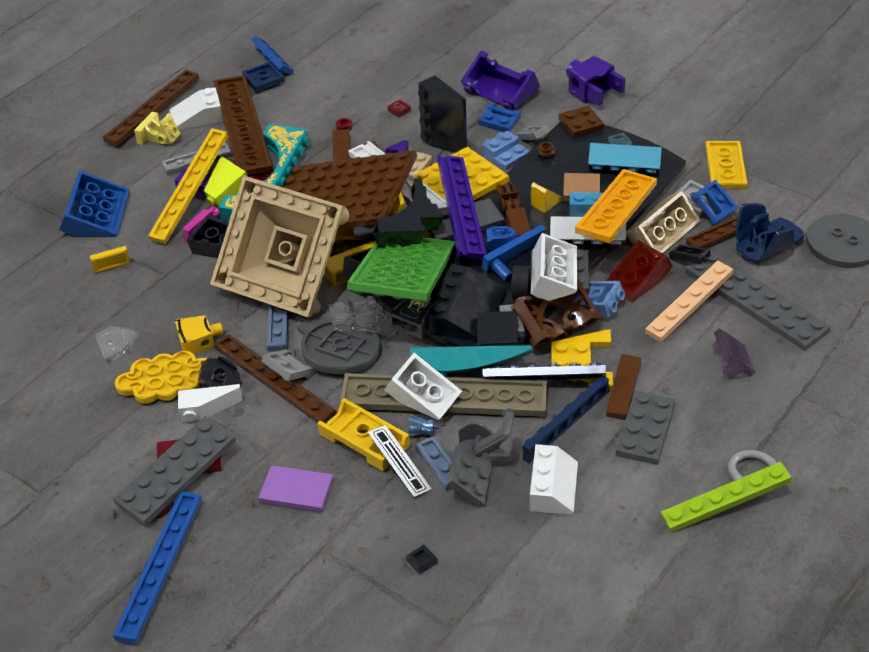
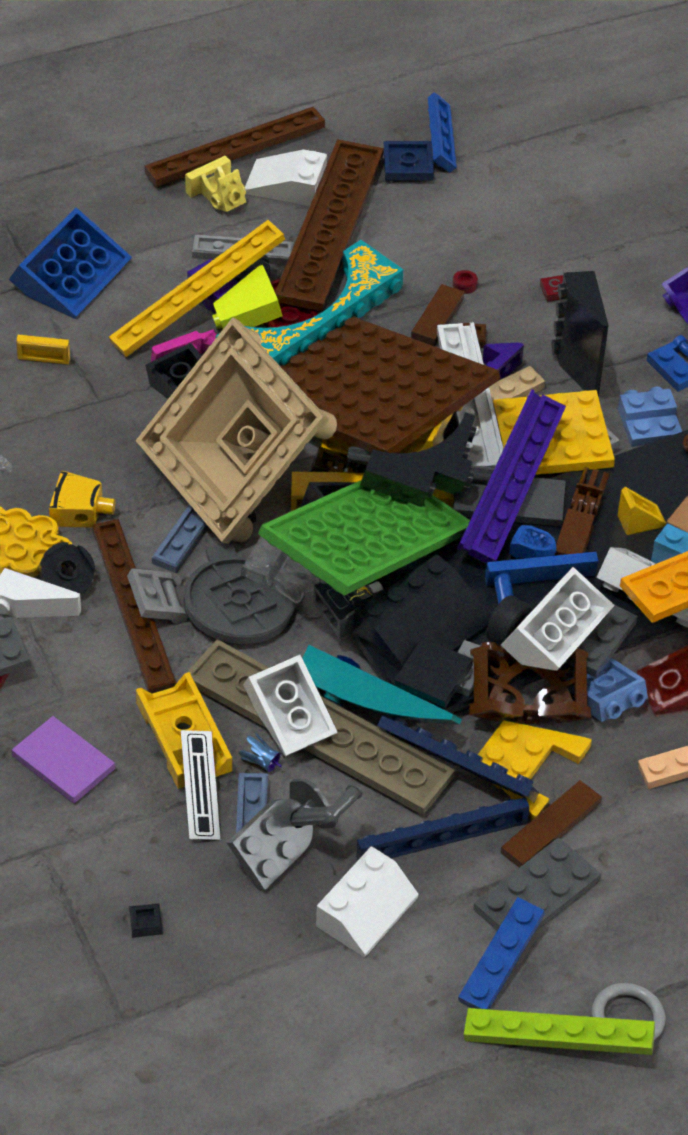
camera: 25 degrees right, 5 degrees up
(657, 471) = (501, 955): none -> blue plate

